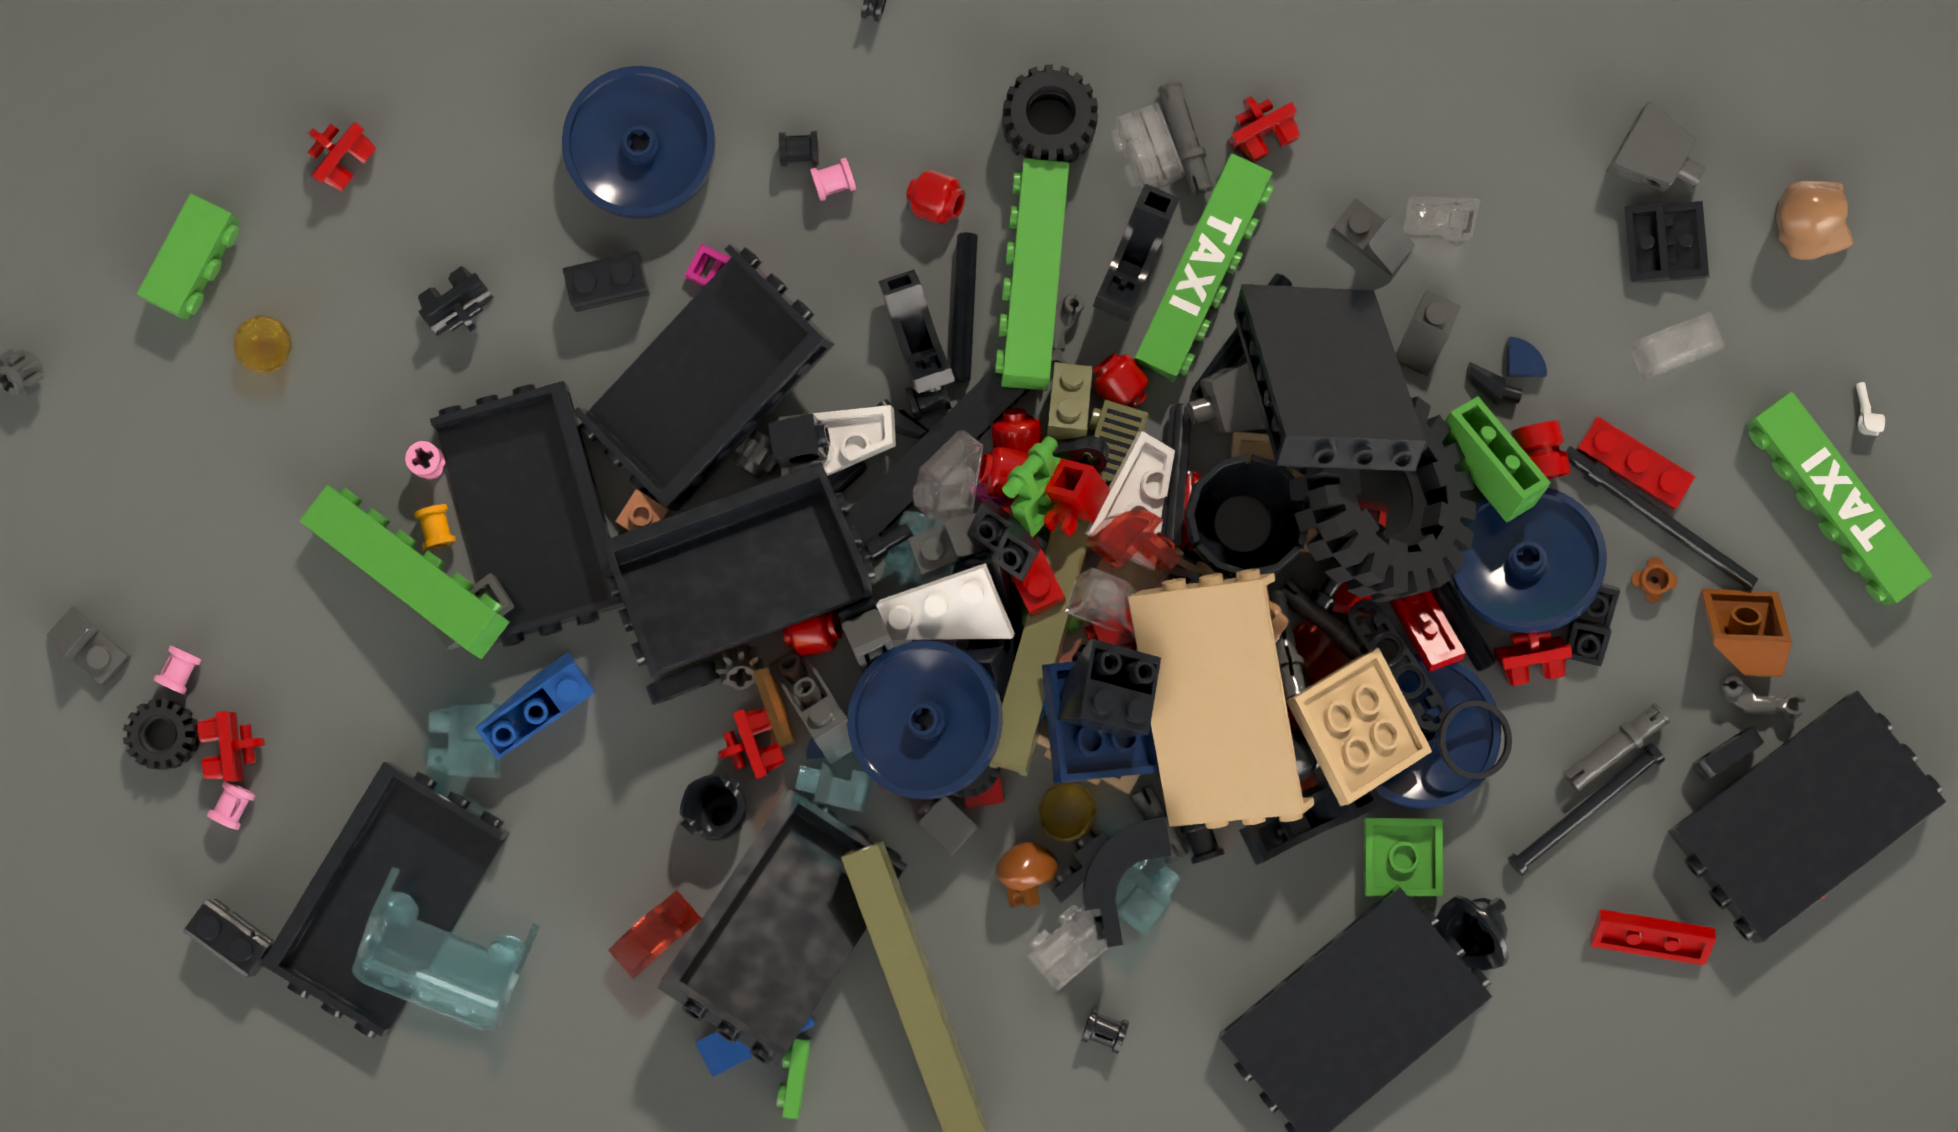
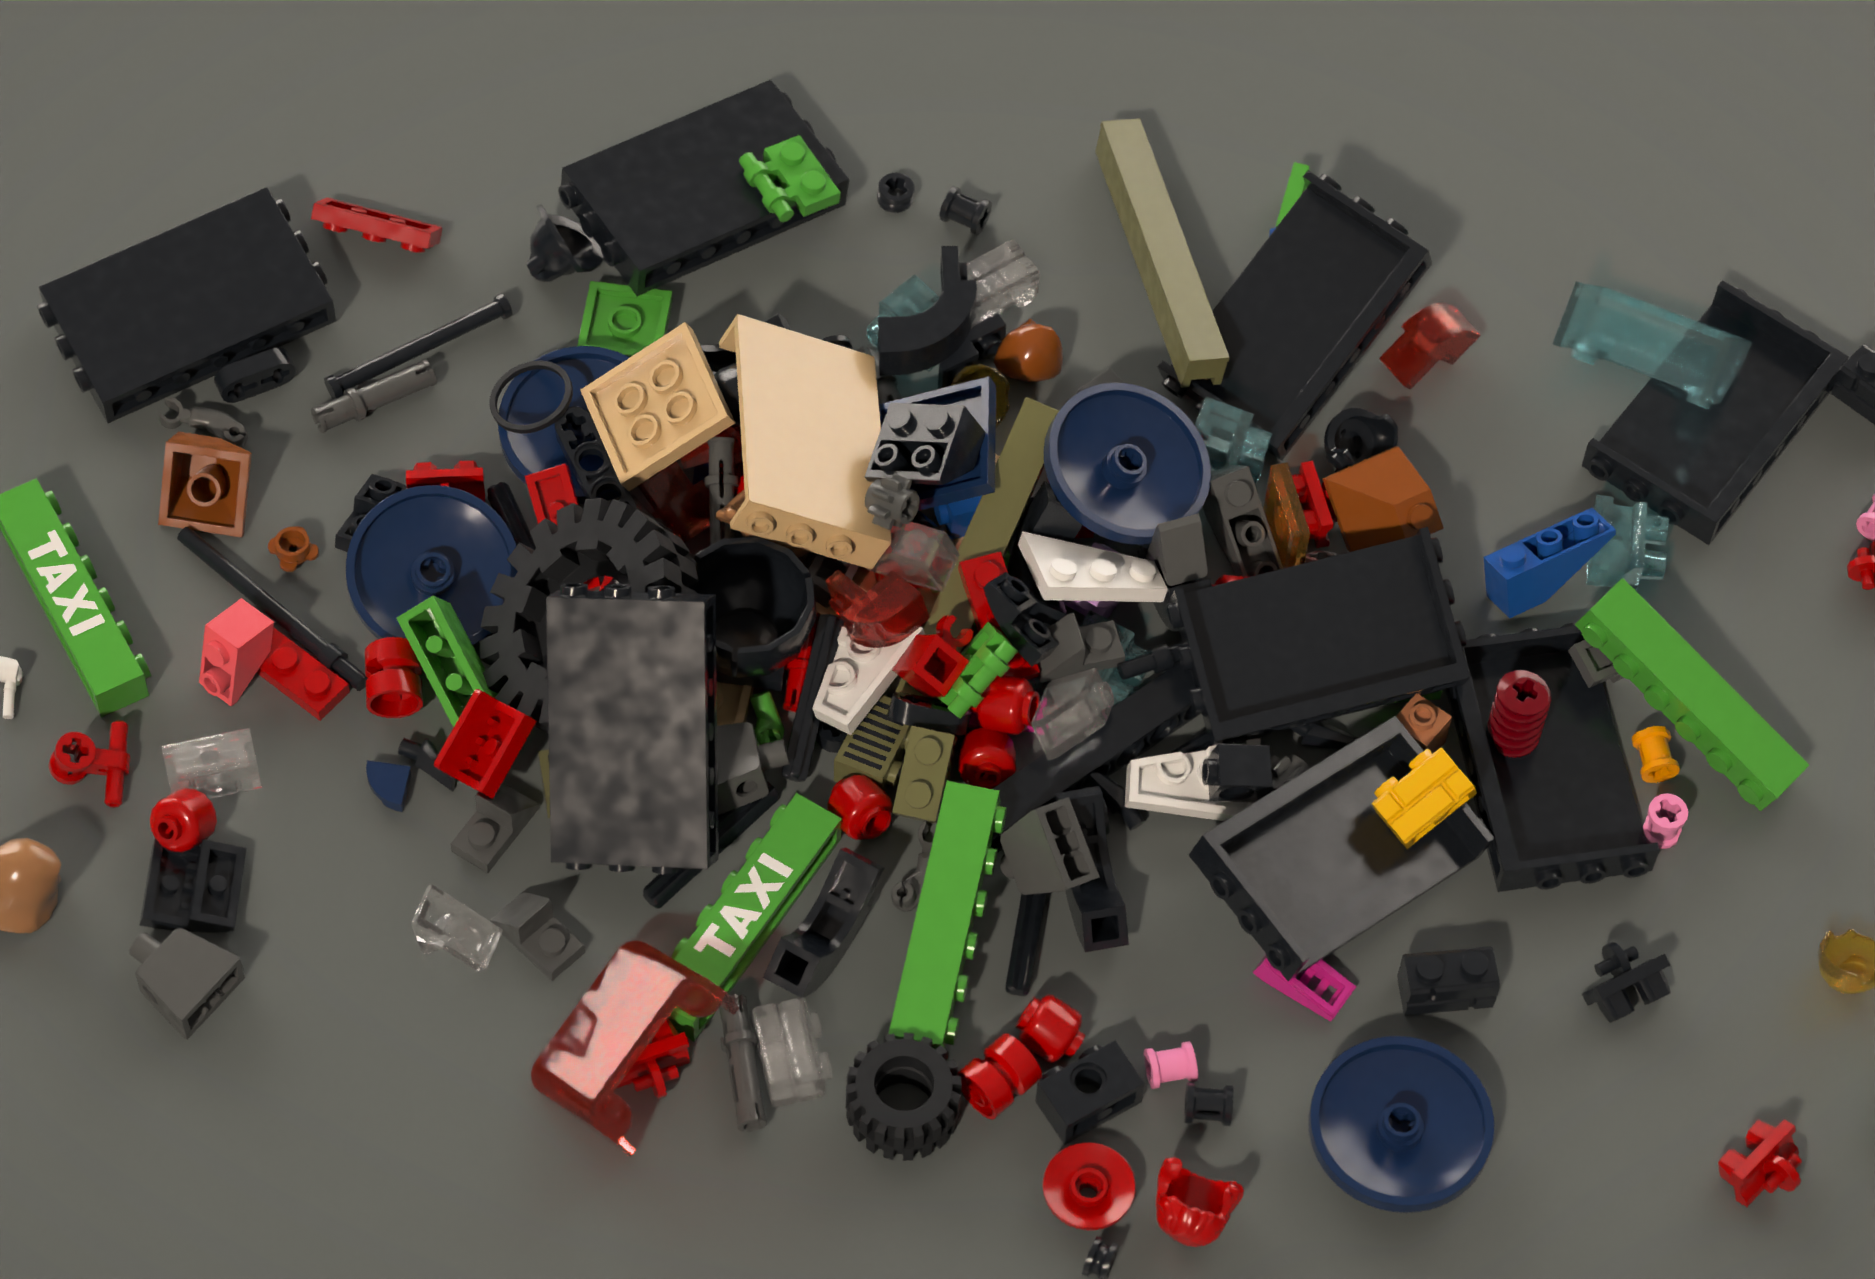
camera: 170 degrees left, 25 degrees down
(557, 518) = (1518, 713): none -> dark red piece
(636, 429) = (1423, 796): none -> yellow brick
(688, 742) = (1381, 501): none -> dark orange slope
(801, 52) = (1192, 1206): none -> red hair
(887, 44) = (1094, 1168): none -> red dish
(906, 125) = (1076, 1112): none -> black brick
(958, 343) = (1047, 851): none -> dark grey torso
(974, 145) = (1005, 1071): none -> red wheel
(1133, 623) = (892, 501): none -> dark grey gear
(1162, 1052) = (897, 203): none -> black bush
(1208, 448) = (768, 722): none -> bright green arm
(1265, 1025) = (799, 174): none -> bright green plate
(1290, 139) = (613, 1029): none -> clear red windscreen
(1449, 372) = (484, 743): none -> red bracket
(1683, 451) = (234, 650): none -> coral slope
(1689, 290) = (183, 820): none -> red head
(1761, 345) = (110, 763): none -> red piece

